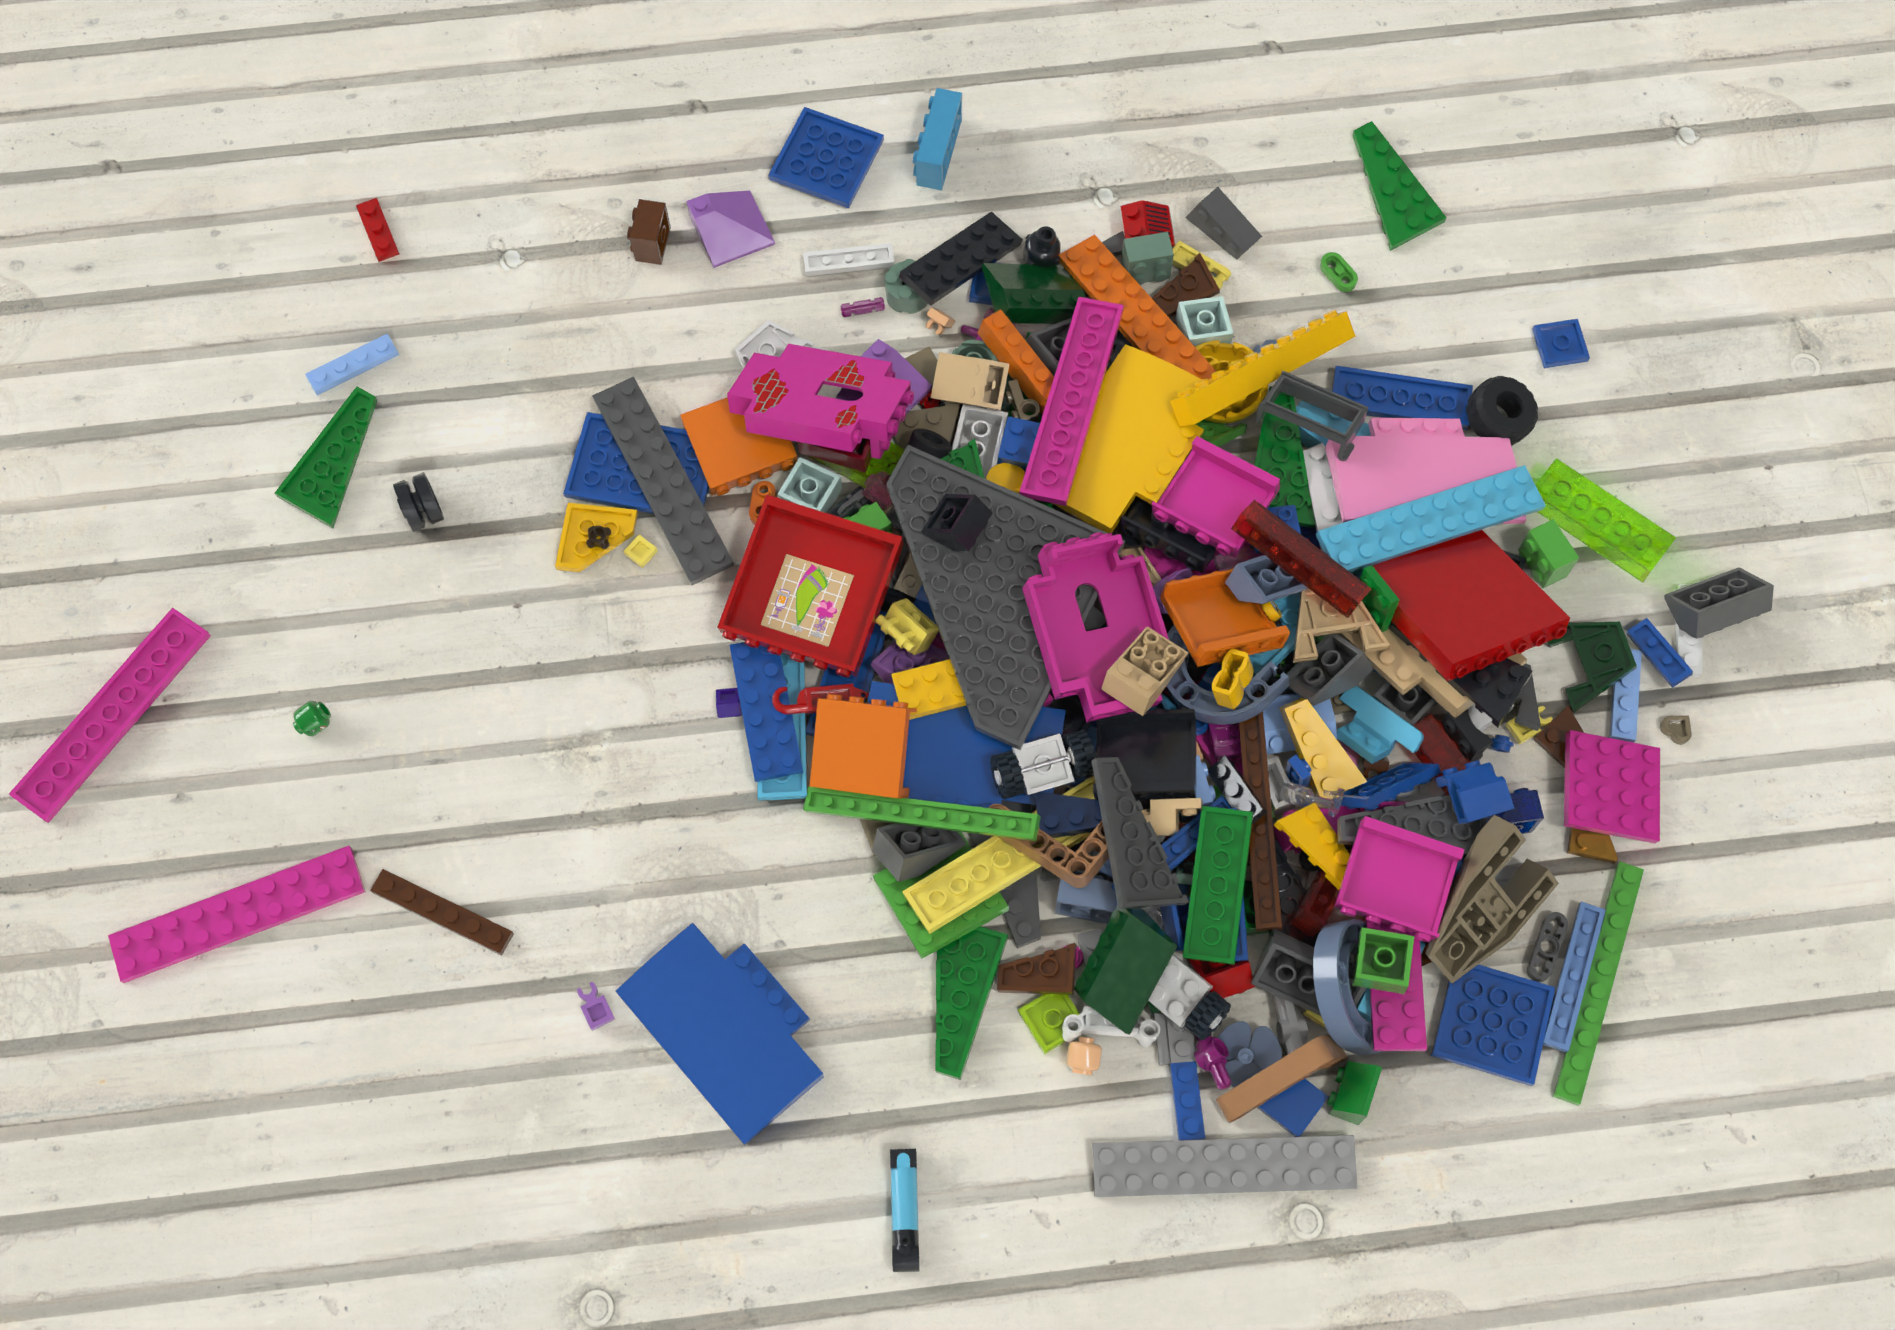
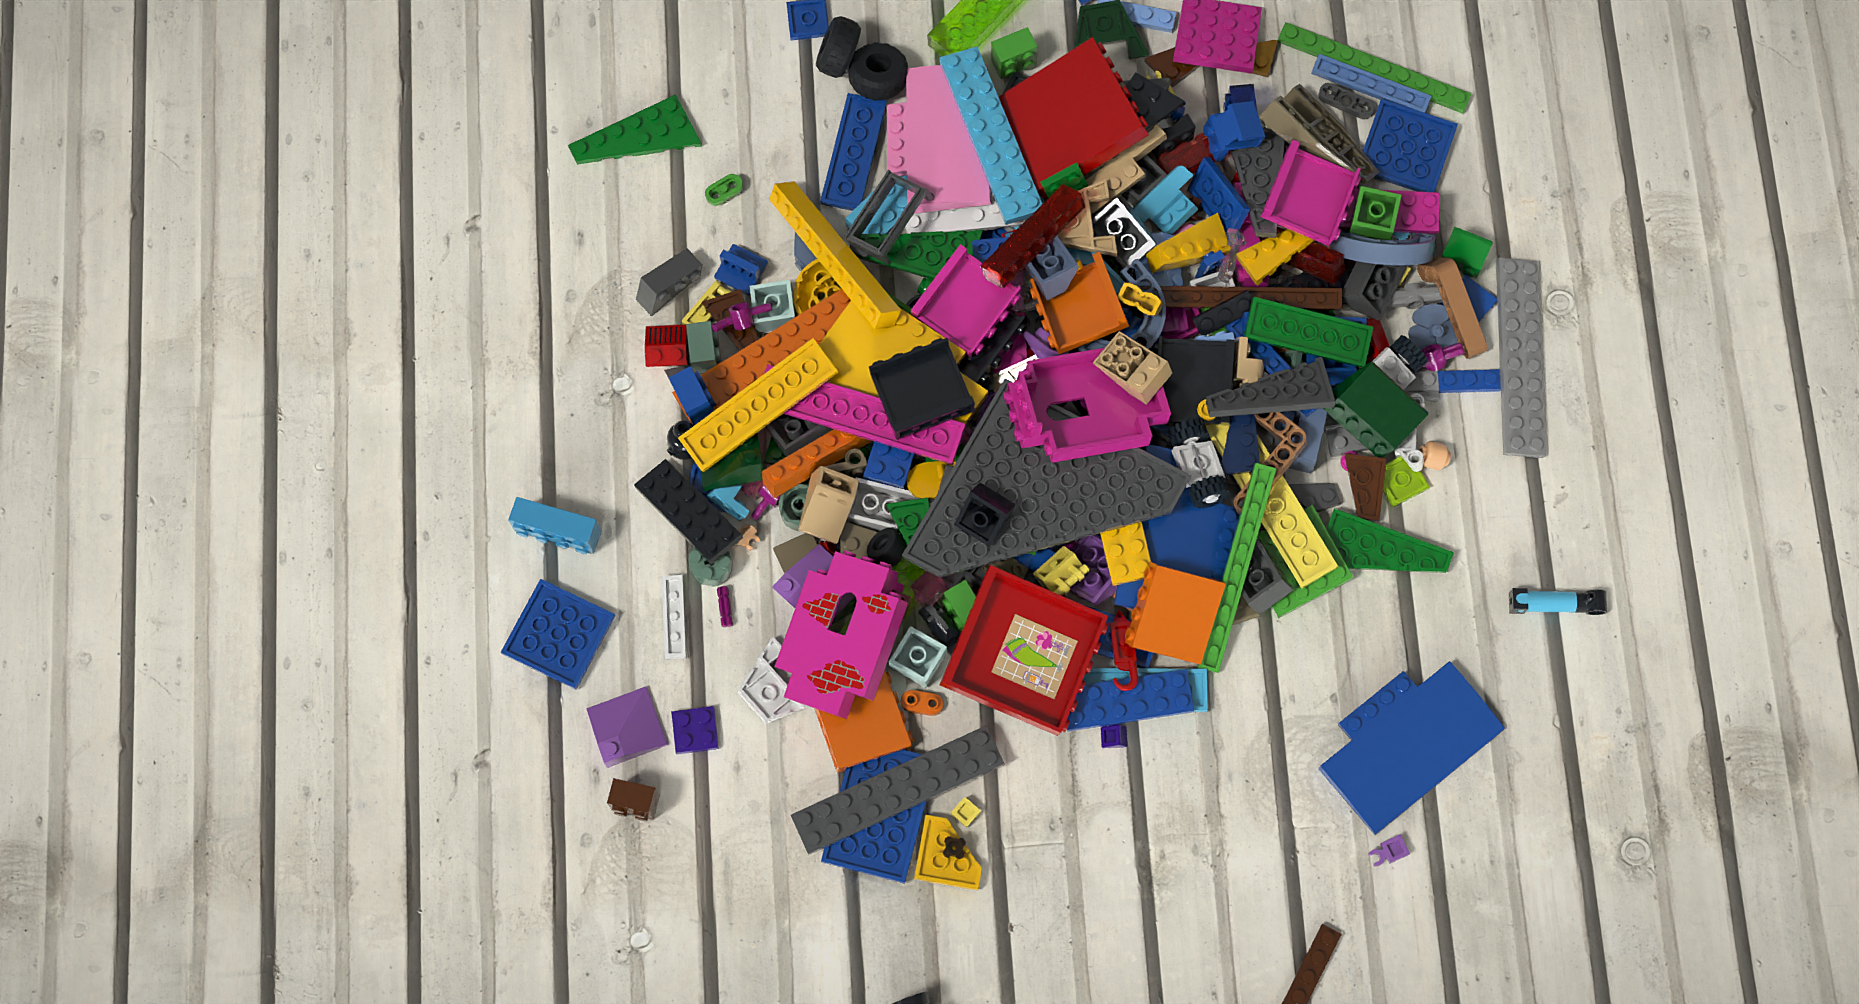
camera: 85 degrees left, 5 degrees up
(728, 289) = (694, 730): none -> dark purple plate
(978, 292) = (725, 499): none -> medium azure slope
(1075, 298) = (758, 405): none -> yellow plate
(1084, 240) = (693, 394): none -> blue brick
(1103, 453) = (921, 388): none -> black panel
(1183, 286) = (741, 316): none -> magenta piece
(1248, 294) = (740, 268): none -> blue bracket
(1526, 362) = (838, 46): none -> black tyre

